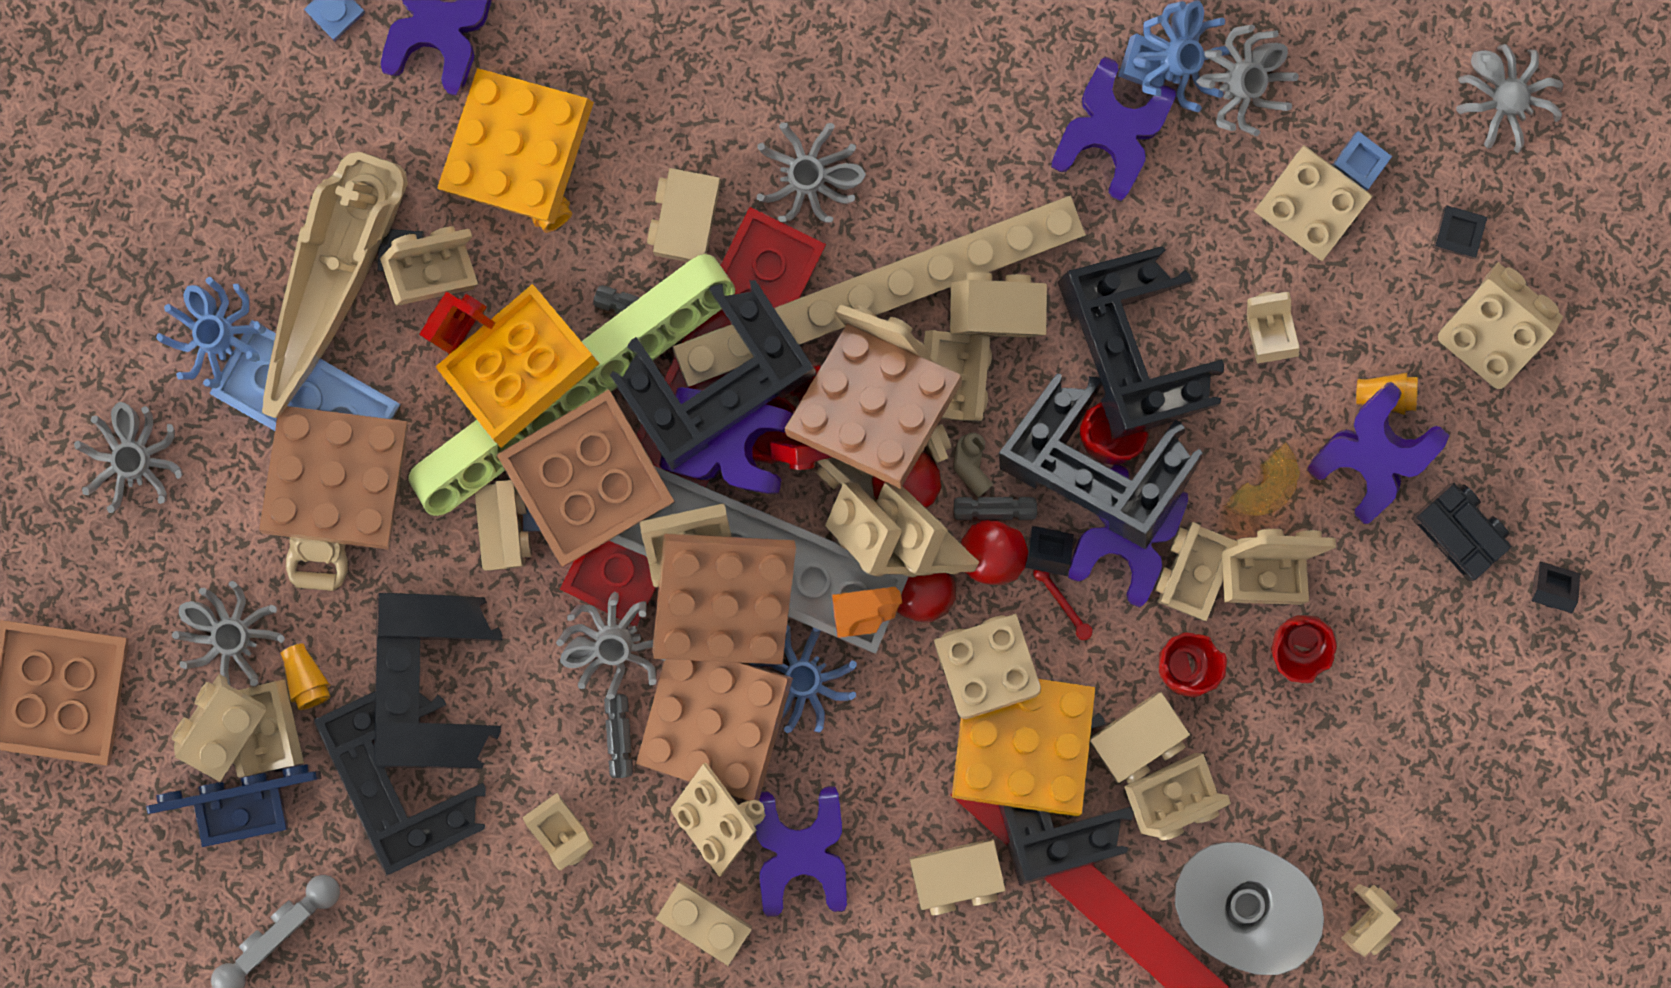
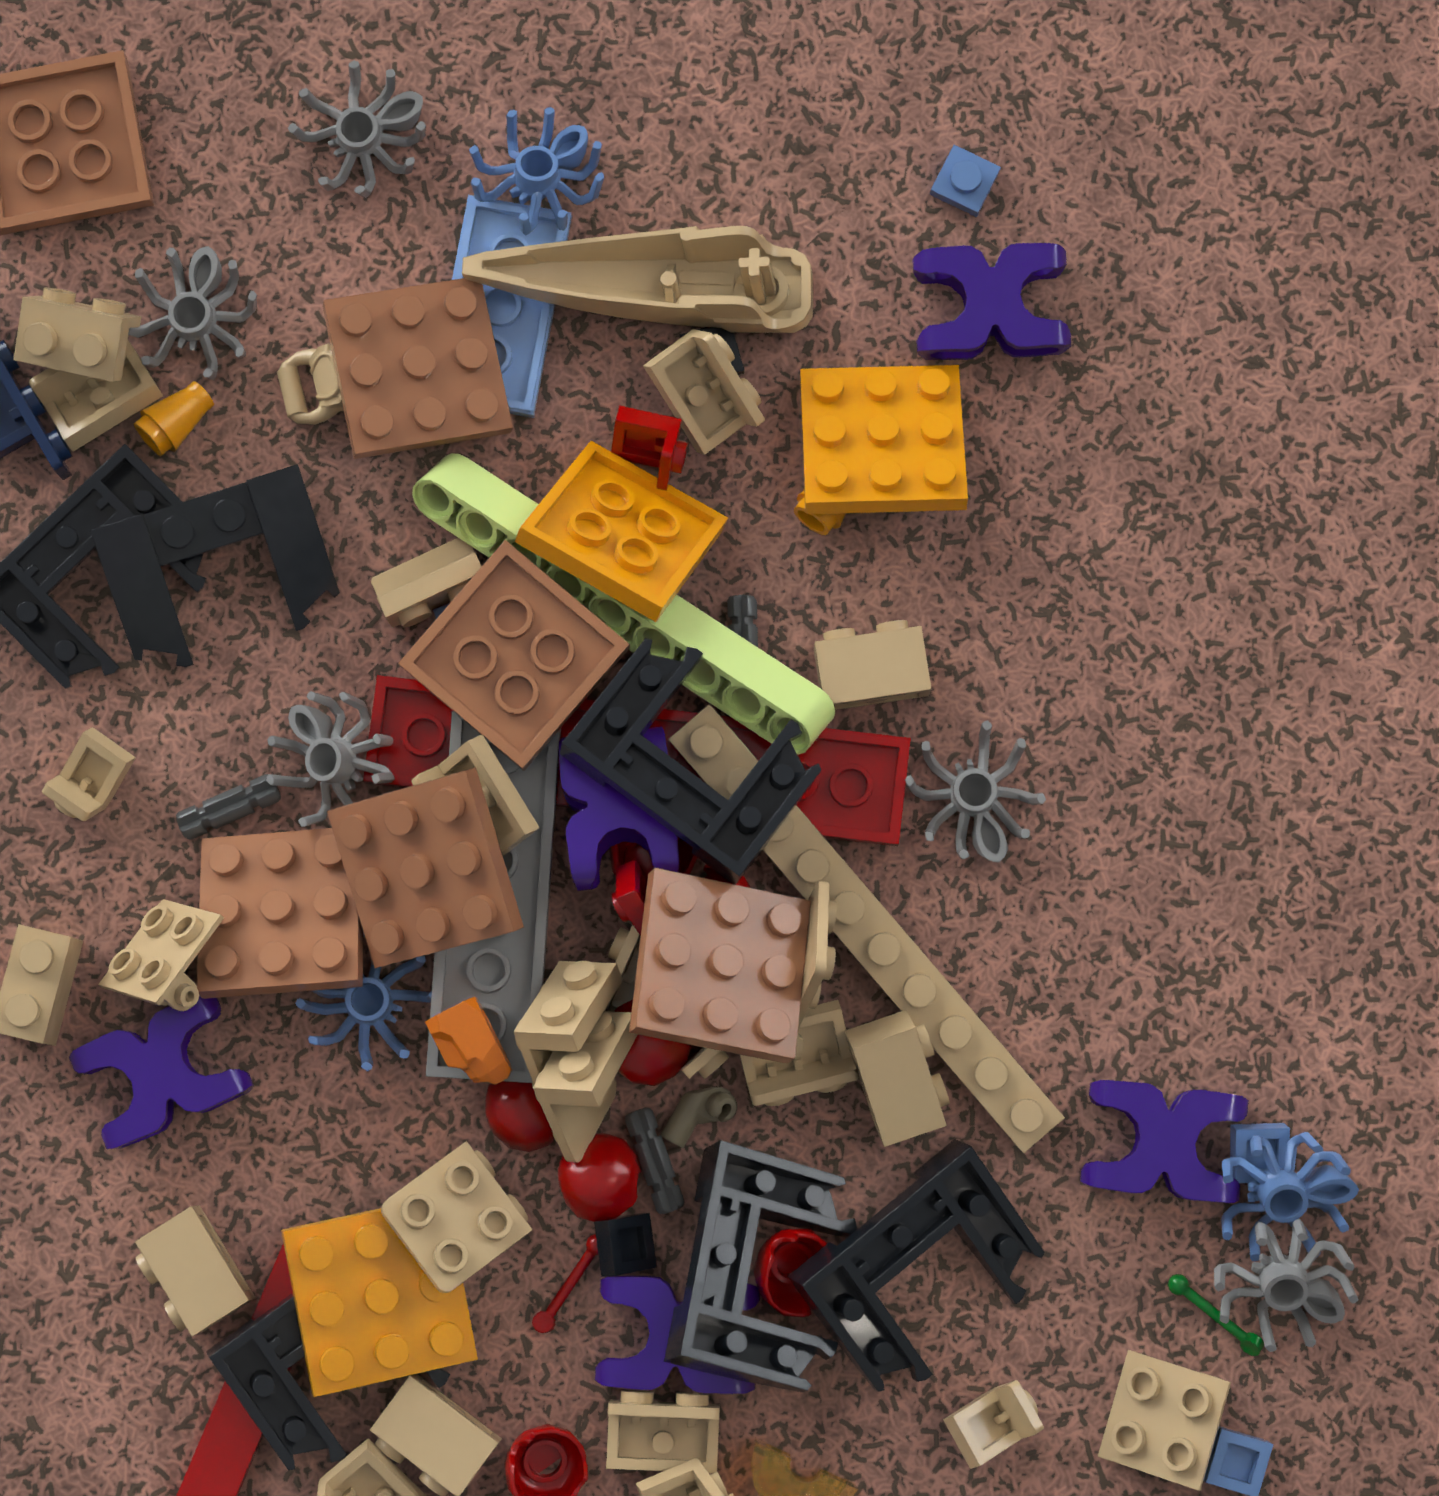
camera: 75 degrees right, 5 degrees down
(1279, 120) = (1249, 1342): none -> green hinge

